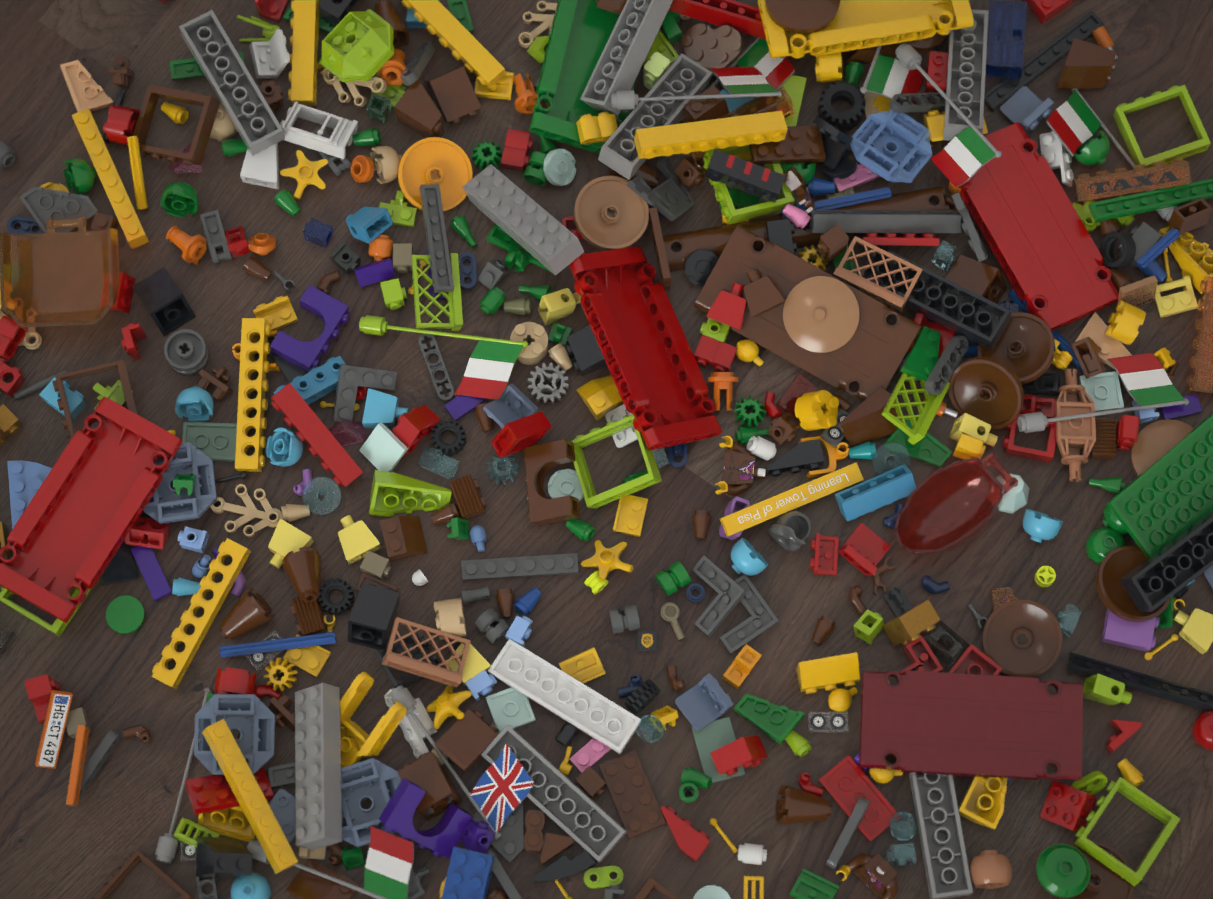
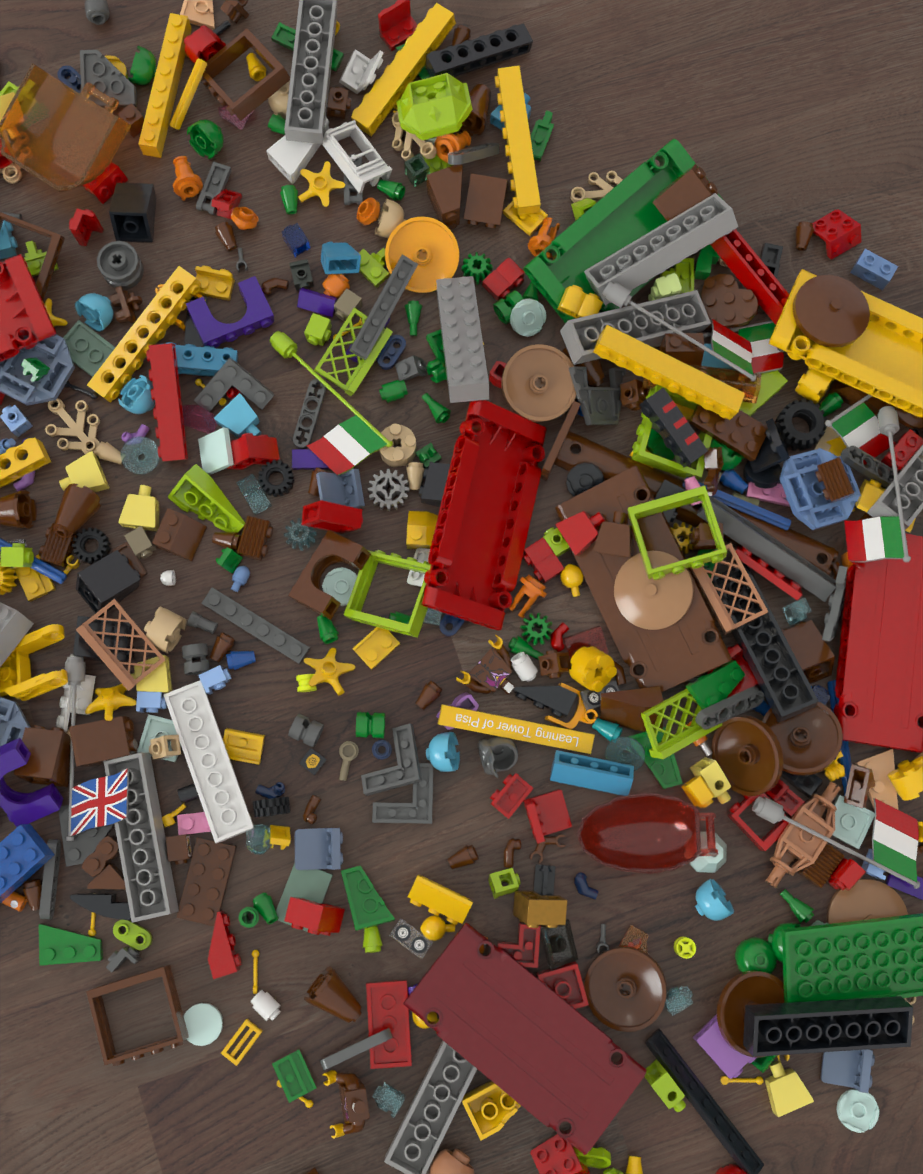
camera: 30 degrees right, 5 degrees up
(268, 29) = (376, 47): lime plant -> none
(286, 642) = (16, 556): none -> lime brick
(477, 836) = (51, 828): dark purple brick -> none
(519, 306) = (413, 410): olive cone -> none
(521, 709) = (159, 747): none -> tan brick
(558, 305) = (442, 430): light yellow torso -> none
(741, 666) = (374, 839): light orange slope -> none
(787, 234) = (672, 502): none -> lime window
(807, 785) = (354, 982): red arm -> none
(891, 520) = (587, 805): dark blue arm -> none
(900, 131) = (835, 480): none -> reddish brown brick
(903, 826) = (406, 1076): clear light blue head -> none
(1125, 730) = (656, 1134): red slope -> none

